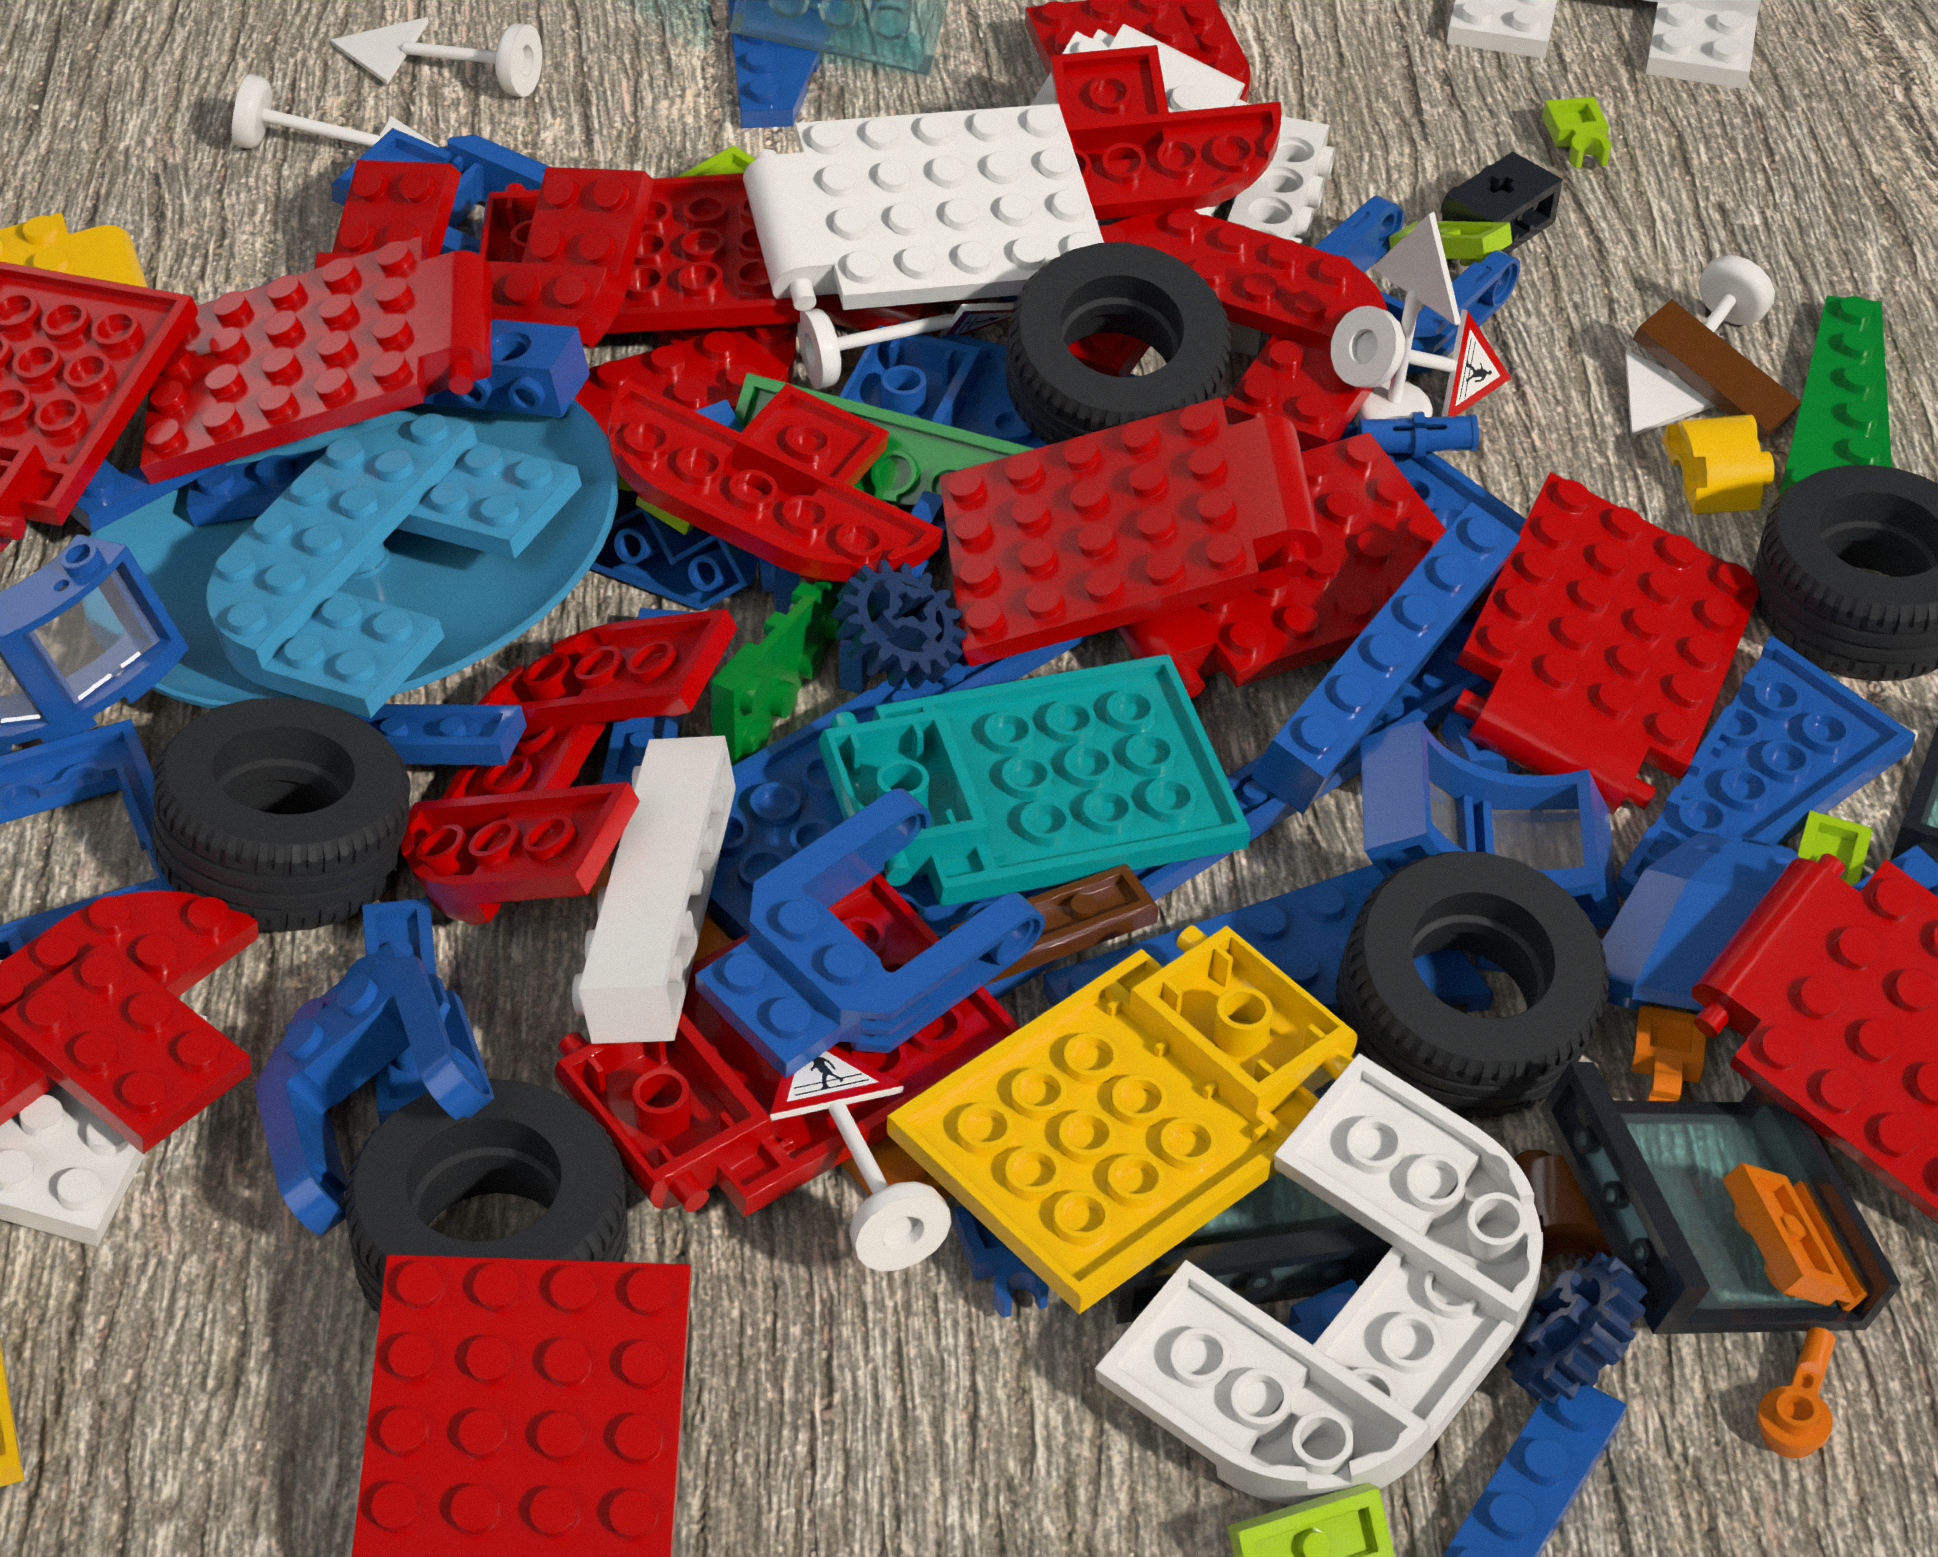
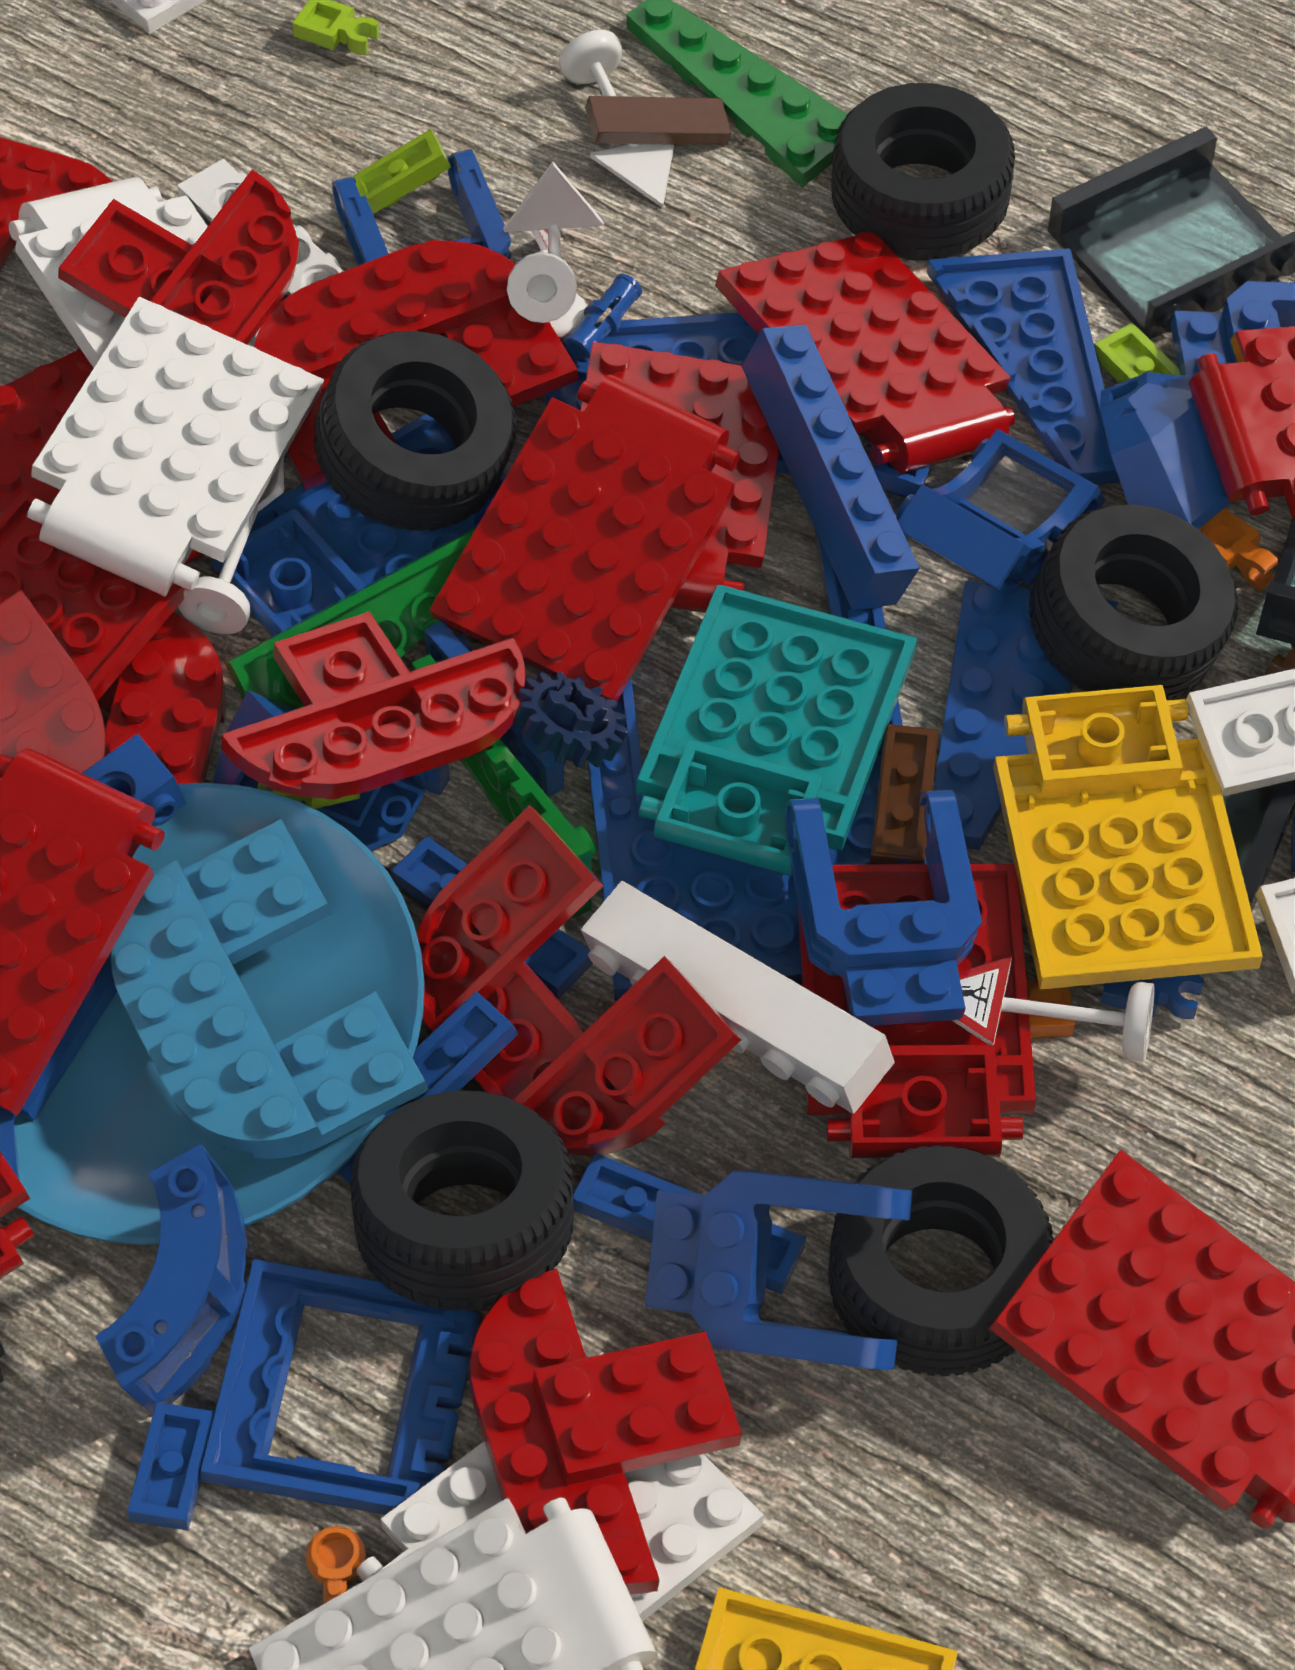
camera: 55 degrees left, 10 degrees up
(1507, 192) = (381, 115): black brick -> none
(1720, 462) = (739, 174): yellow cylinder -> none

